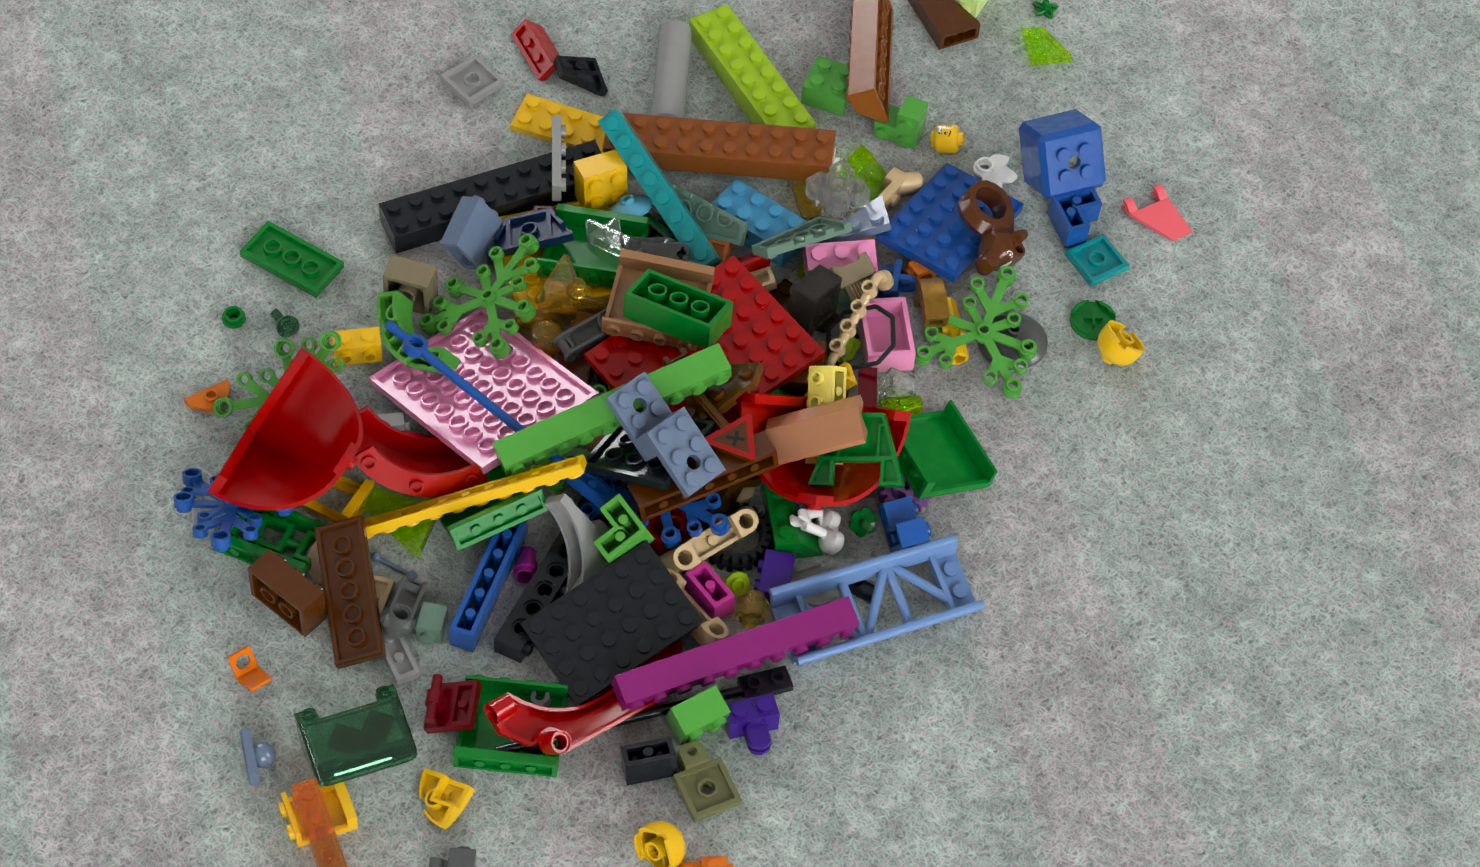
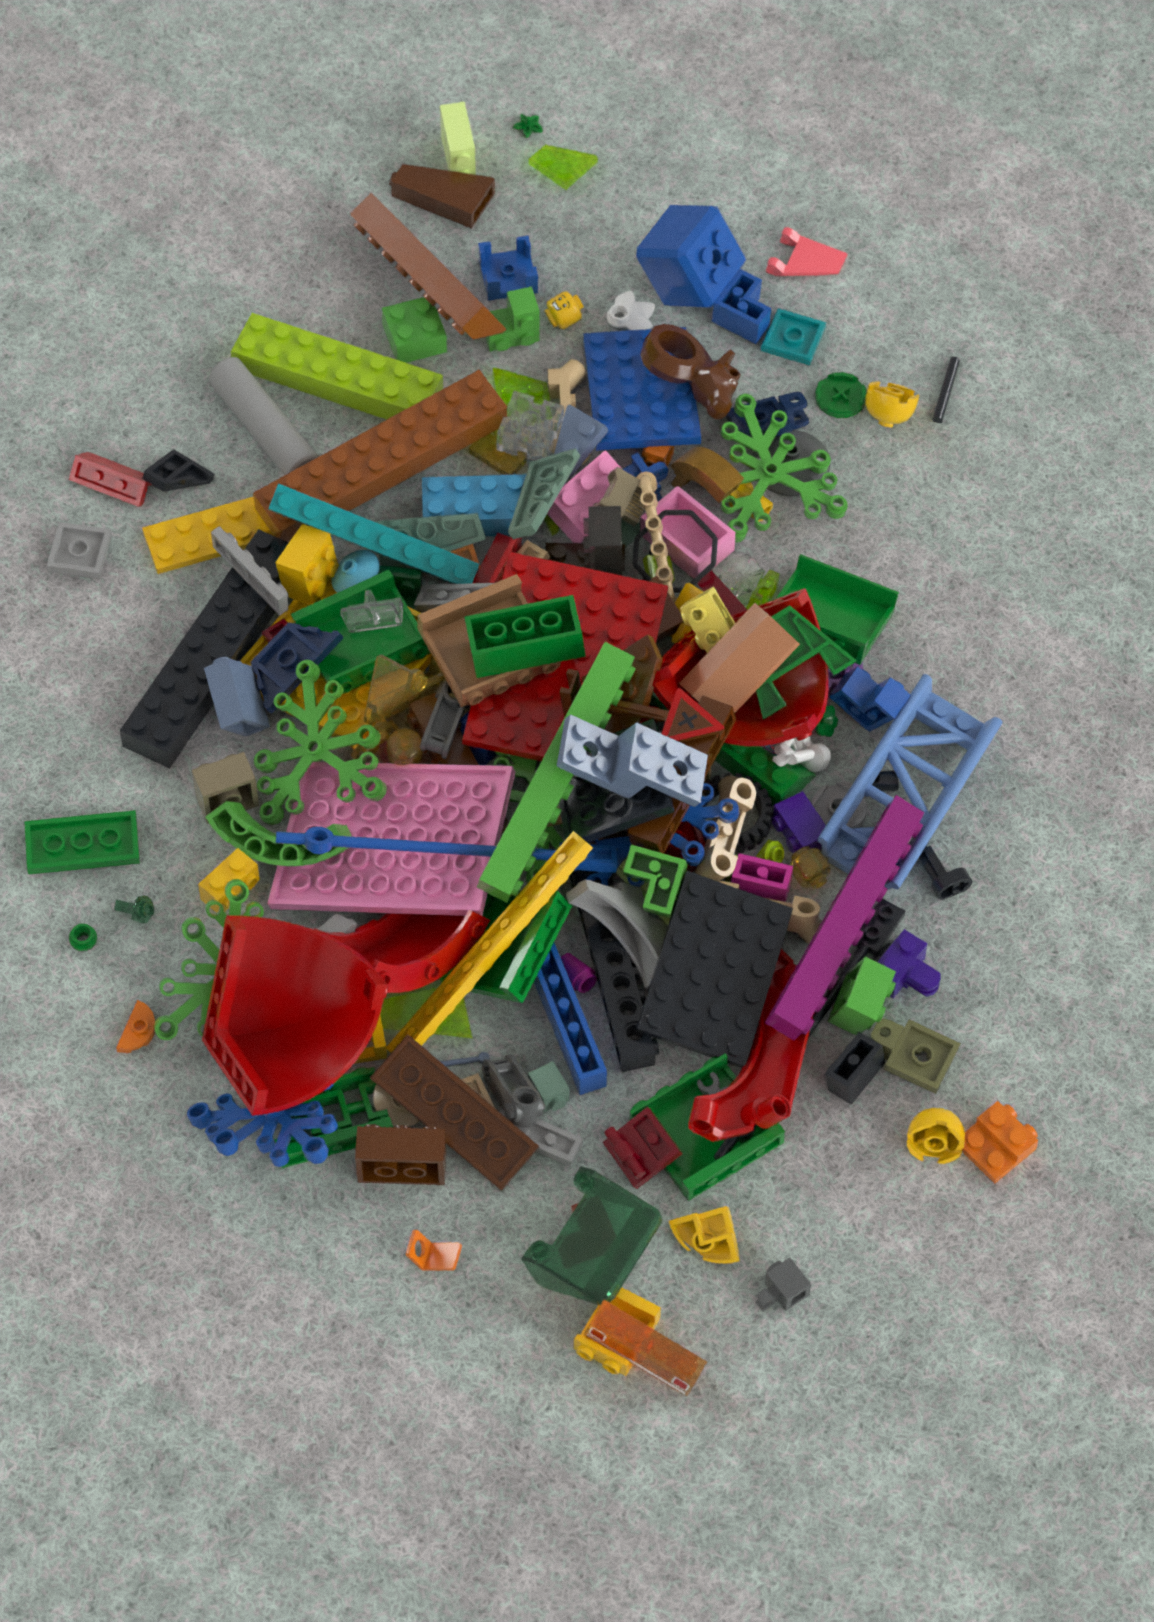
camera: 35 degrees left, 5 degrees up
(255, 756) = (513, 1325): sand blue tile -> none
(659, 246) = (425, 595): dark grey piece -> none
(840, 687) = (944, 883): none -> black piece
(936, 89) = (507, 269): none -> blue panel
(1037, 300) = (767, 406): none -> dark blue plate
(1173, 366) = (946, 390): none -> black bar

